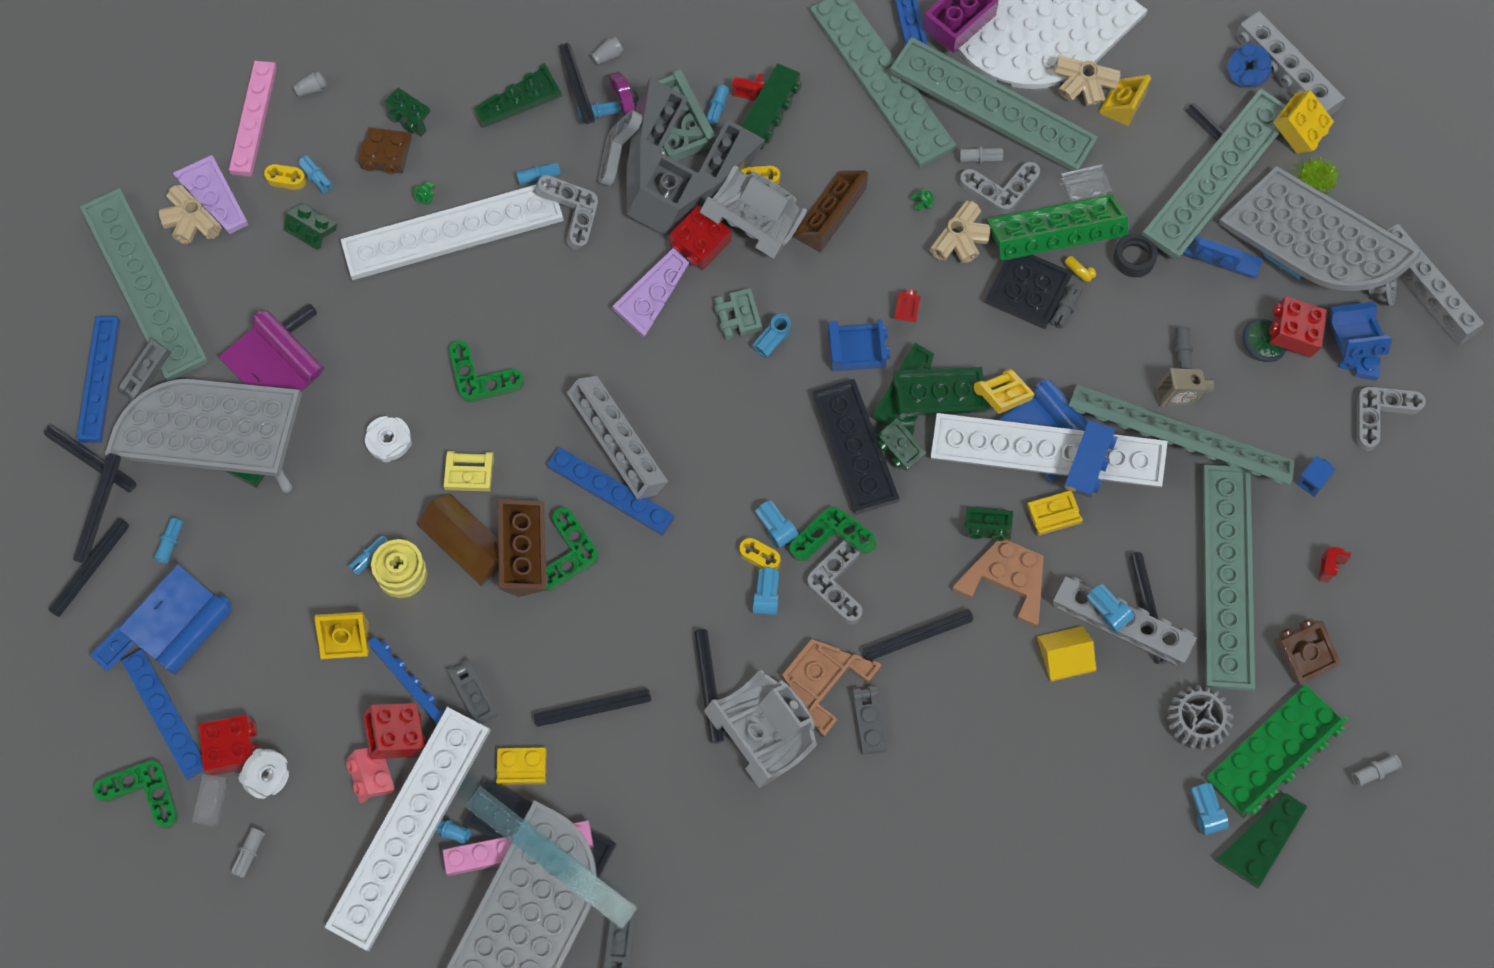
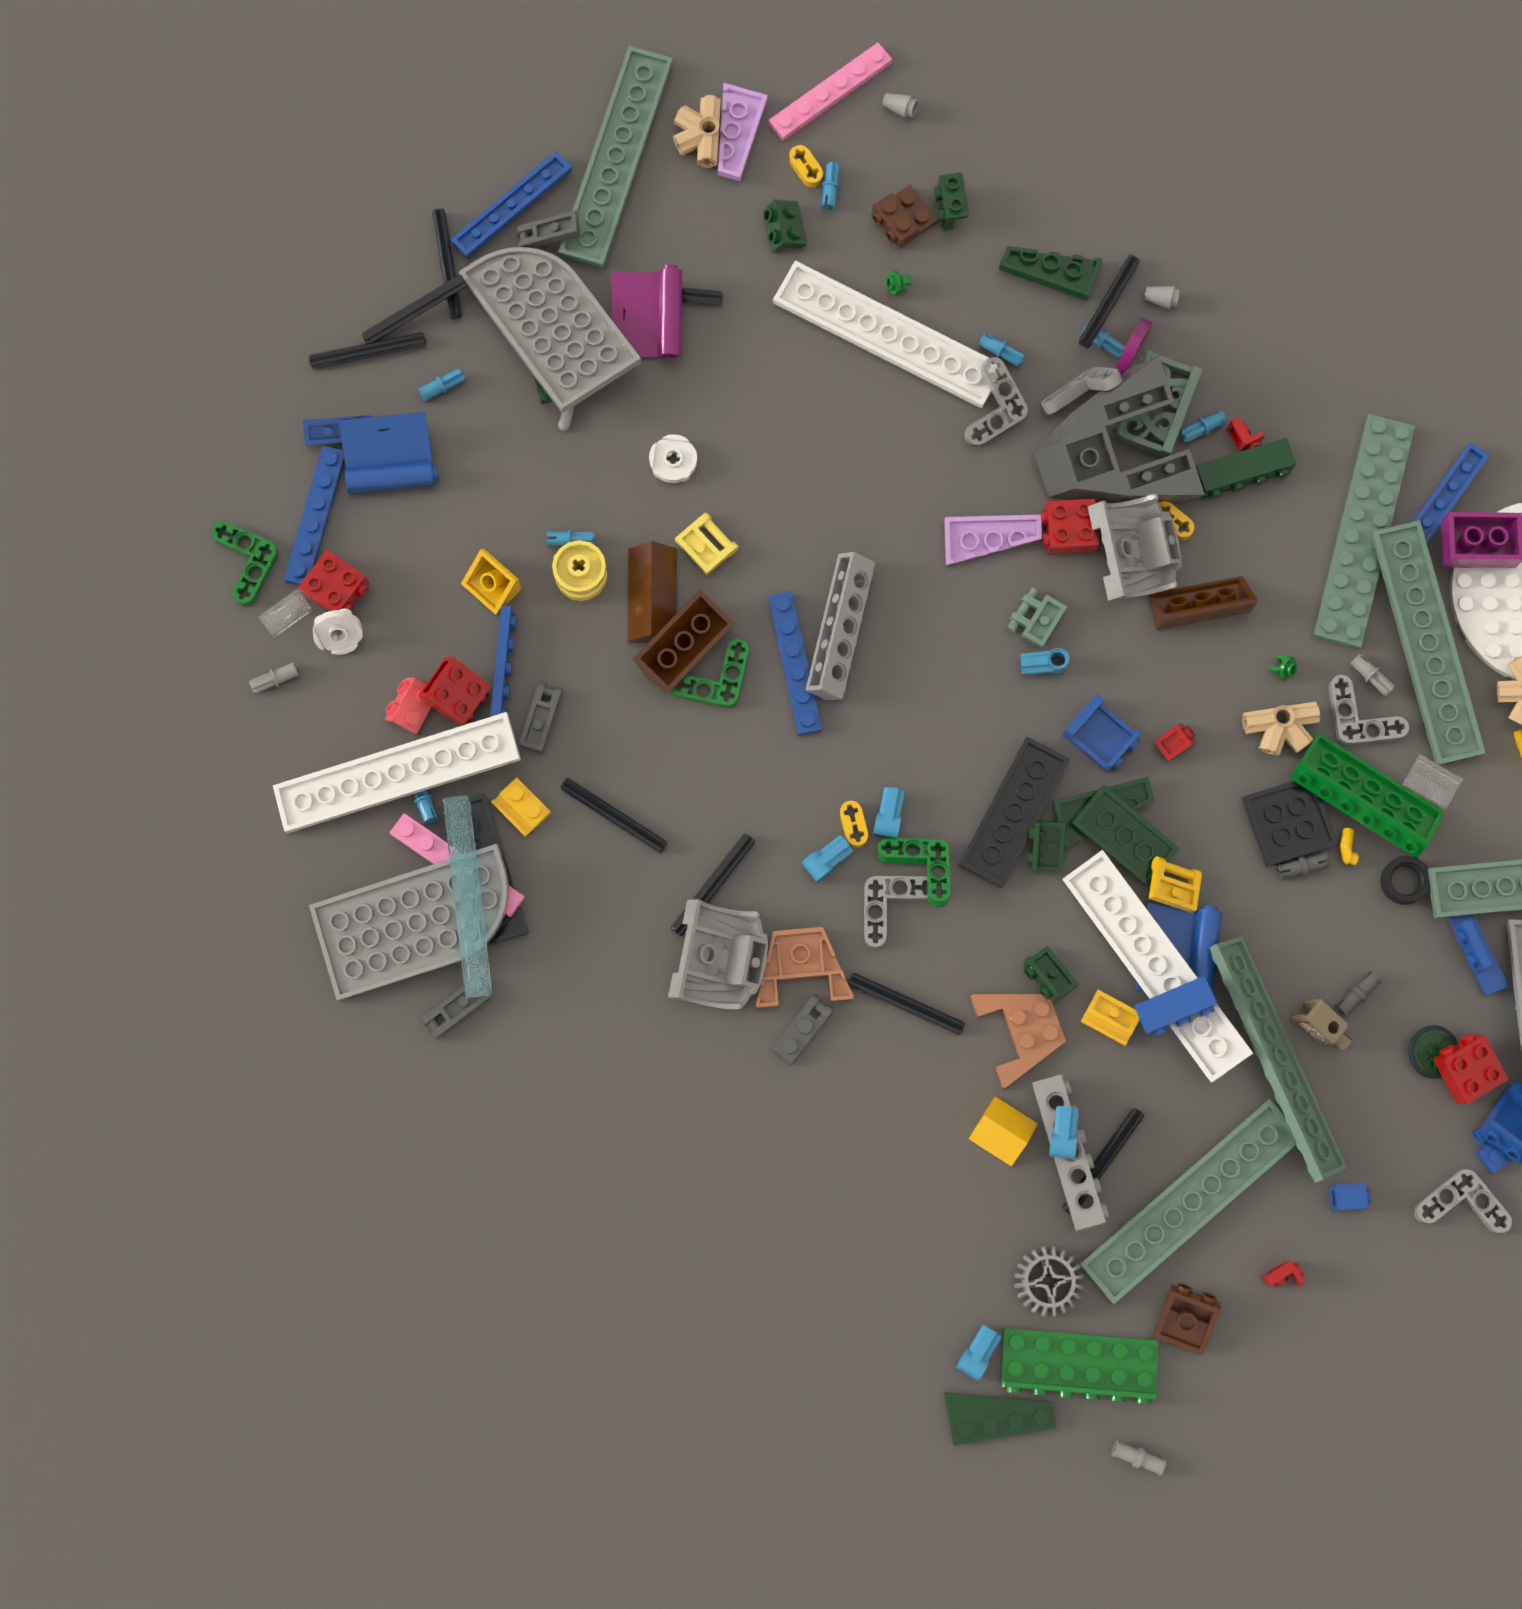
camera: 45 degrees right, 10 degrees up
(478, 384) = (784, 481): green beam -> none

